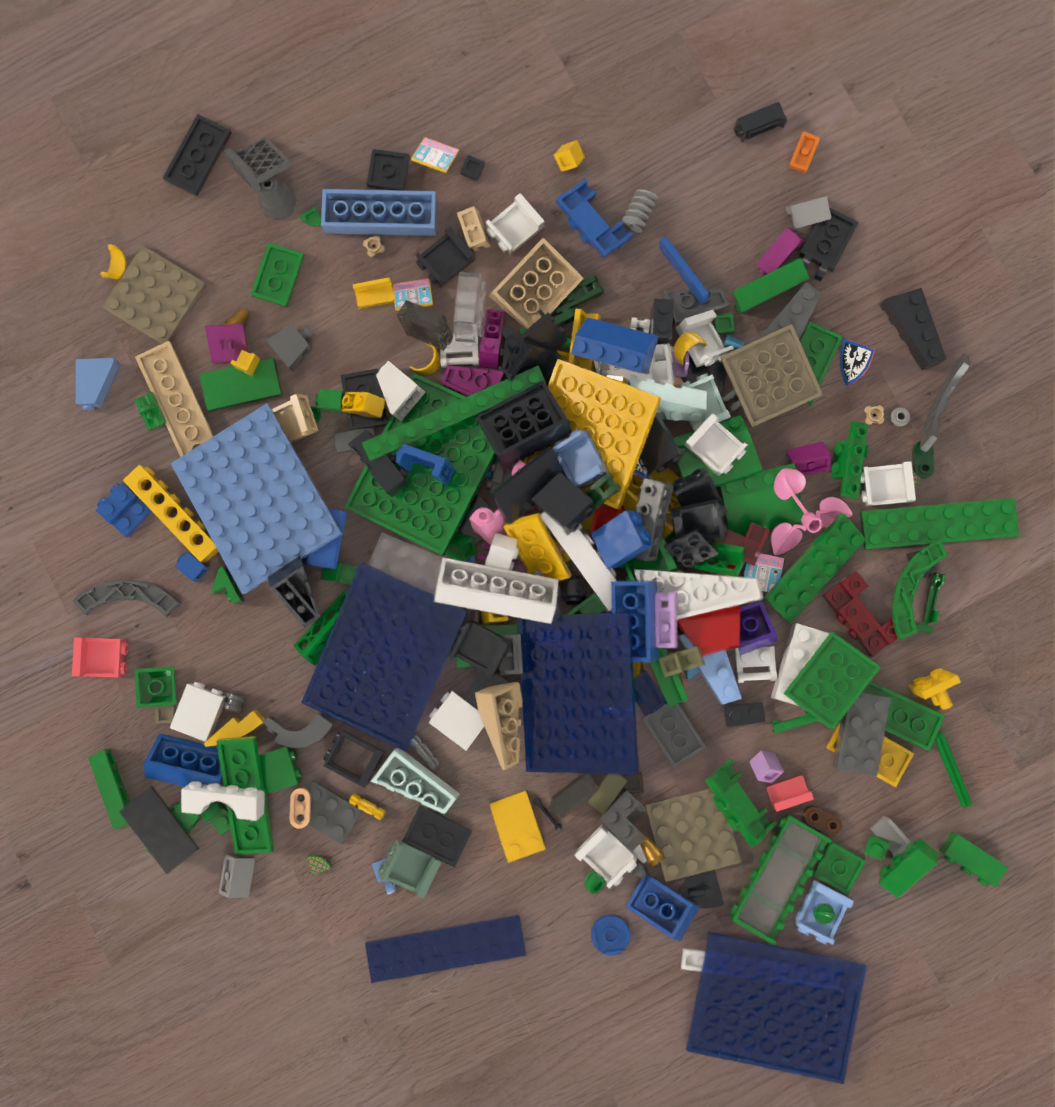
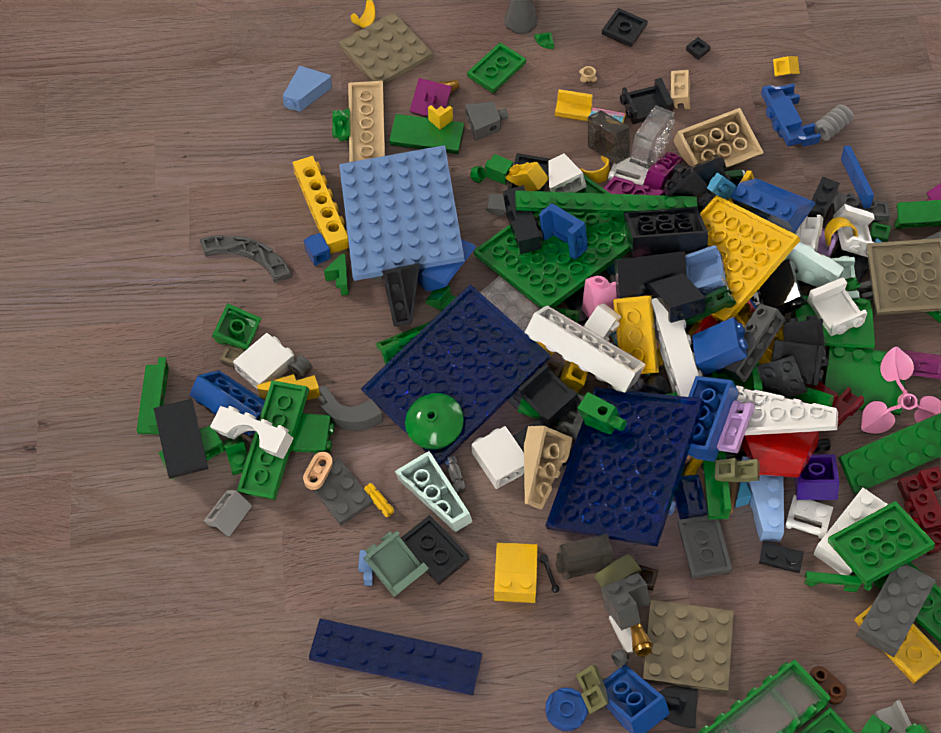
camera: 15 degrees right, 25 degrees down
(99, 657) = (199, 290): coral panel -> none
(123, 509) = (280, 187): blue plate -> none
(296, 417) = (465, 168): tan panel -> none
(318, 864) = (308, 532): green tile -> none
(371, 767) = (379, 433): black window -> none
(379, 212) = (604, 50): medium blue brick -> none
(393, 704) = (441, 429): none -> green dish
(435, 155) = (669, 29): piece -> none
(515, 225) = (718, 98): white panel -> none
(532, 653) = (600, 414): none -> green torso
(559, 348) = (721, 186): none -> dark azure plate
(580, 294) = (757, 165): dark green plate -> none
(594, 882) = (570, 651): green tile -> none
(607, 855) = (593, 628): white panel -> none
(630, 914) = (593, 688): none -> olive slope
(717, 405) = (852, 284): none -> green plate
(737, 806) = (744, 628): green bracket -> none
(766, 766) = (786, 610): lavender panel -> none
(767, 570) = (845, 438): piece -> none
(789, 793) = (801, 646): coral panel -> none

